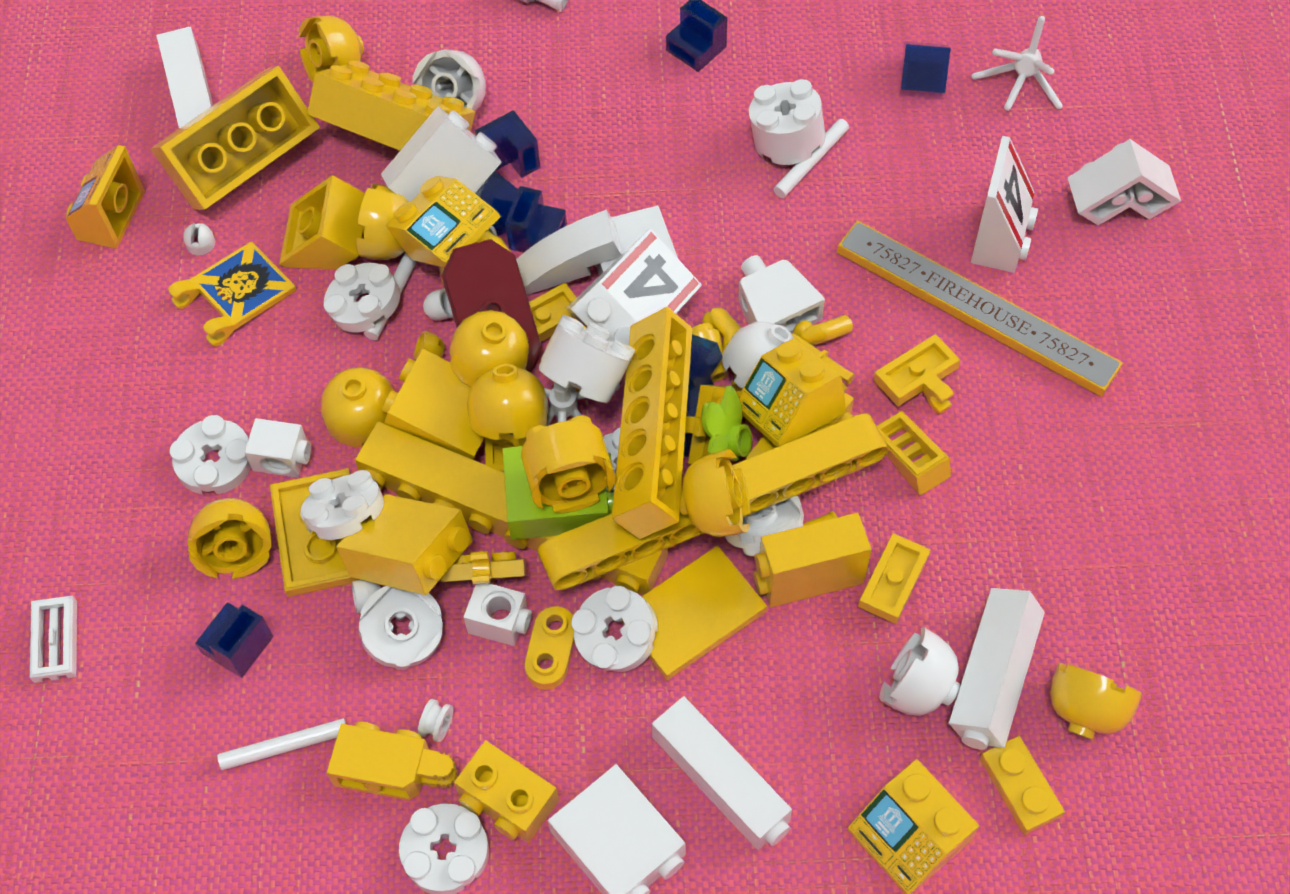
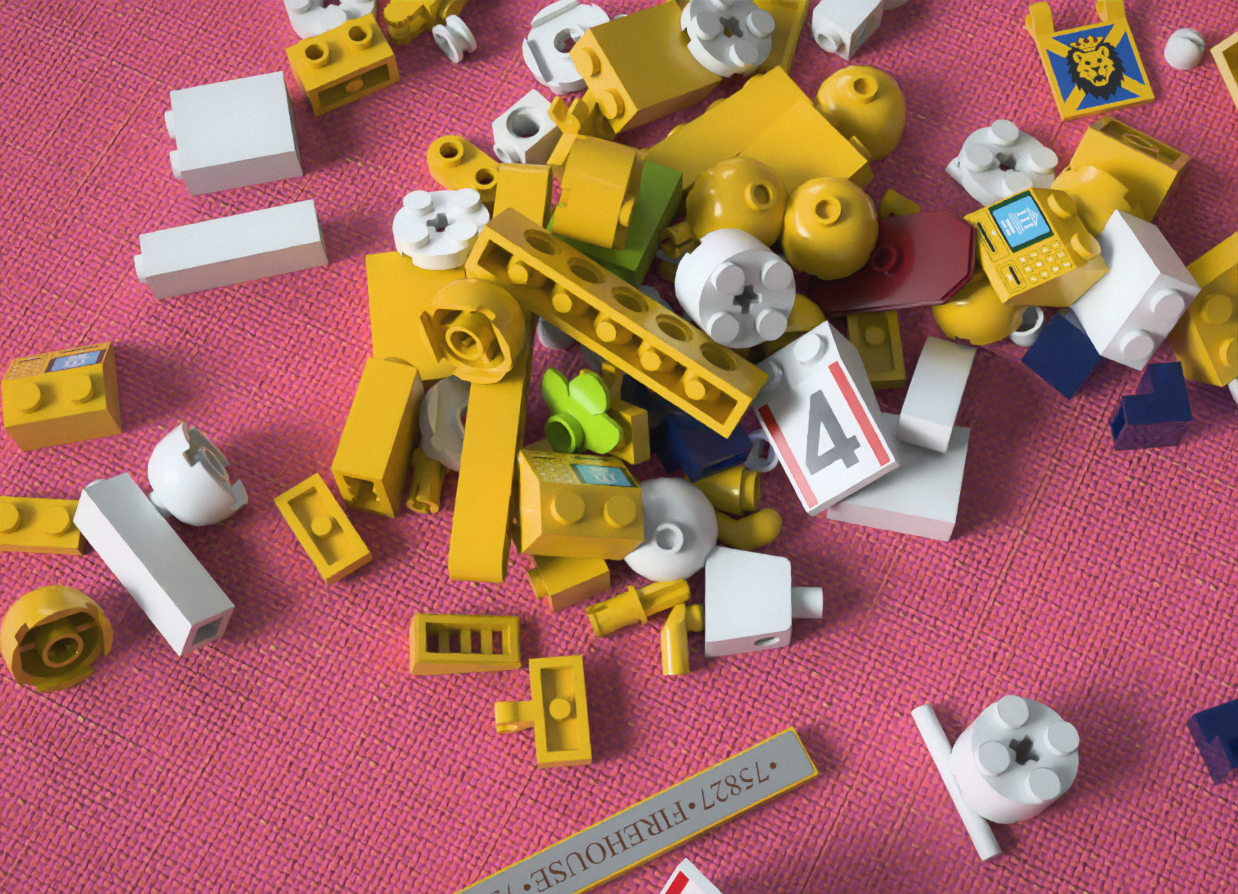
camera: 120 degrees right, 5 degrees up
(531, 219) = (1013, 386): clear blue piece -> none

